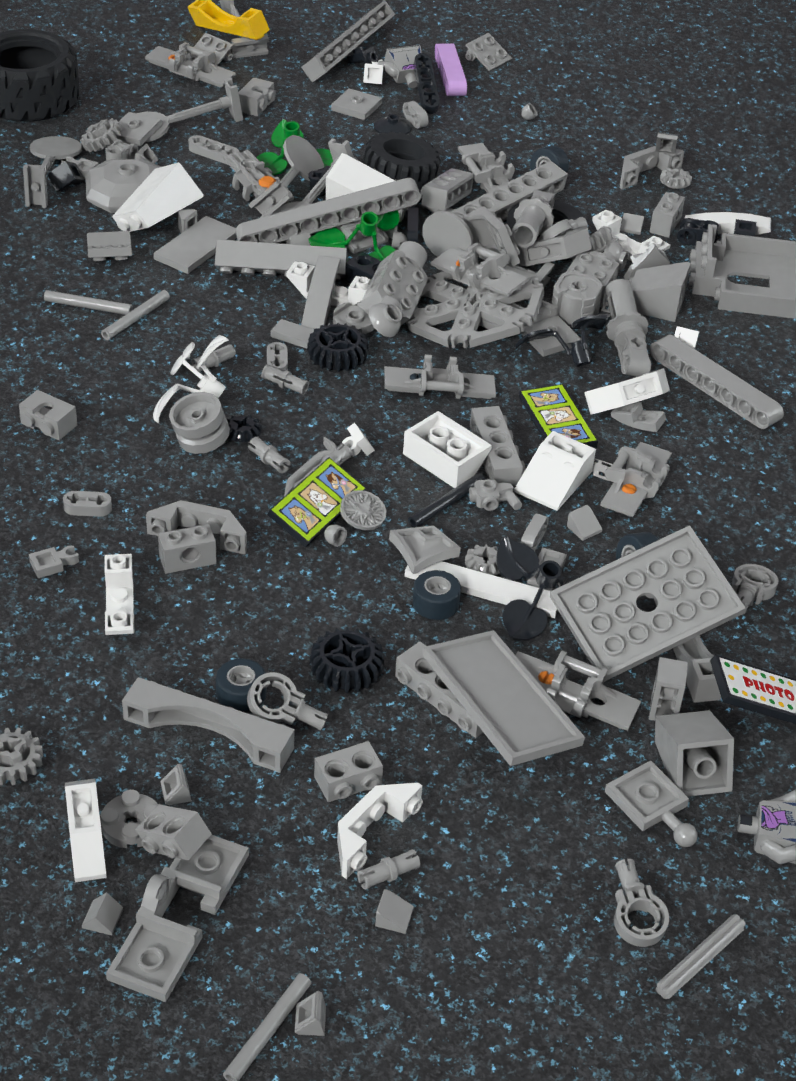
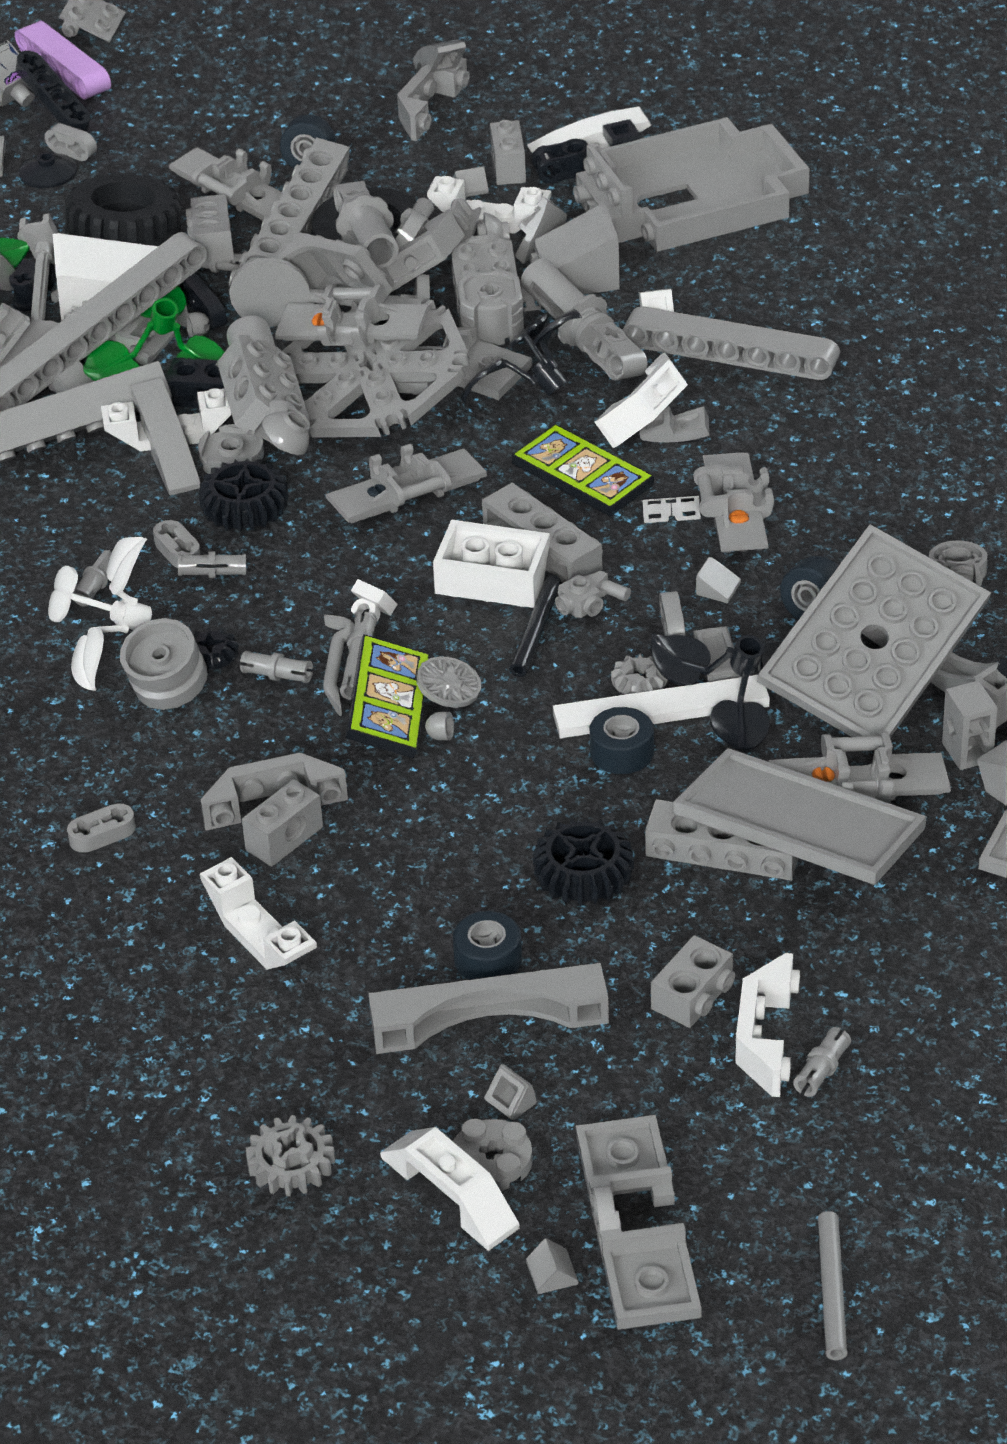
camera: 25 degrees left, 0 degrees up
(50, 562) = (124, 918): light grey plate -> none
(173, 832) = (564, 1137): light grey brick -> none
(291, 333) = (168, 502): light grey tile -> none
(291, 697) = (570, 937): light grey pin -> none
(311, 1015) = (867, 1248): light grey slope -> none
(393, 912) = (863, 1104): light grey slope -> none
(423, 546) = (561, 691): light grey plate -> none
(529, 112) = (216, 81): light grey hinge -> none
(556, 470) = (639, 532): white slope -> none
(675, 178) = (484, 99): light grey gear -> none

